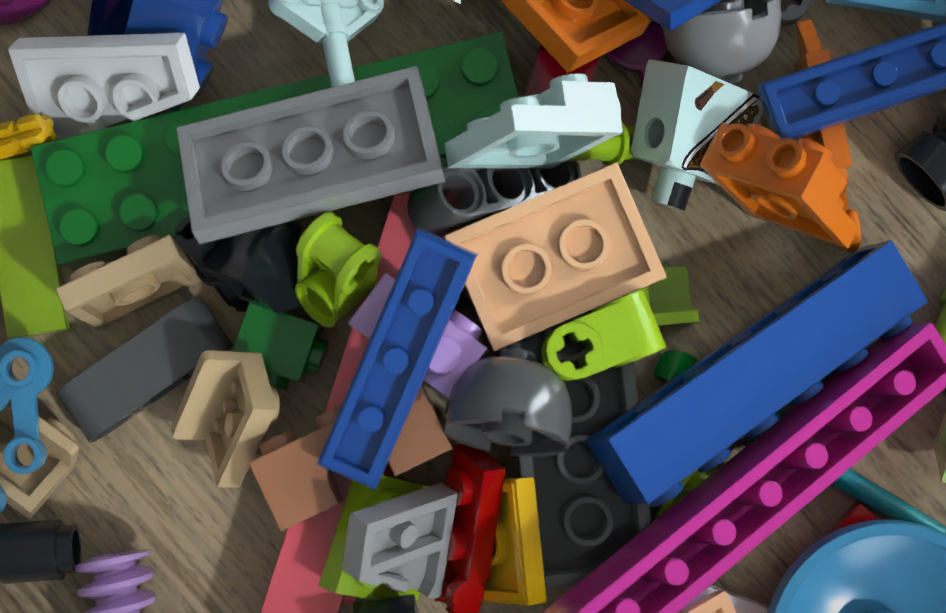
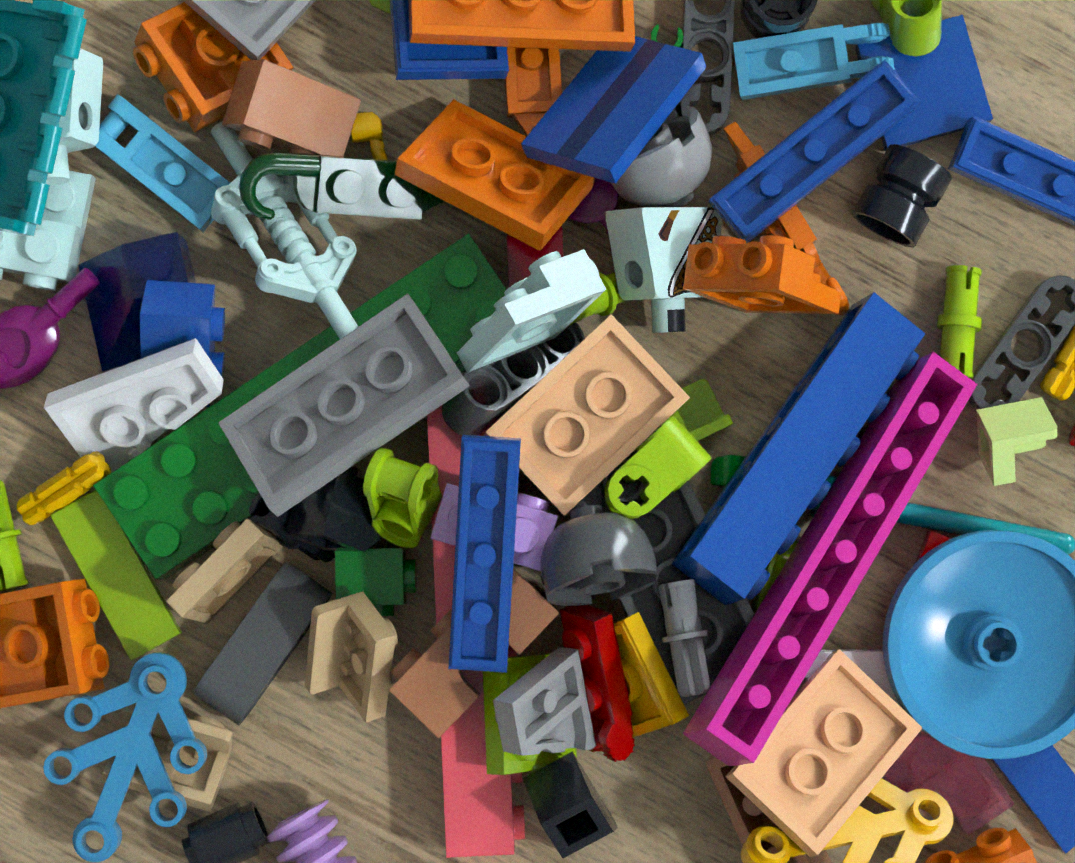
camera: 20 degrees left, 0 degrees up
(572, 521) = (685, 637): none -> light grey axle

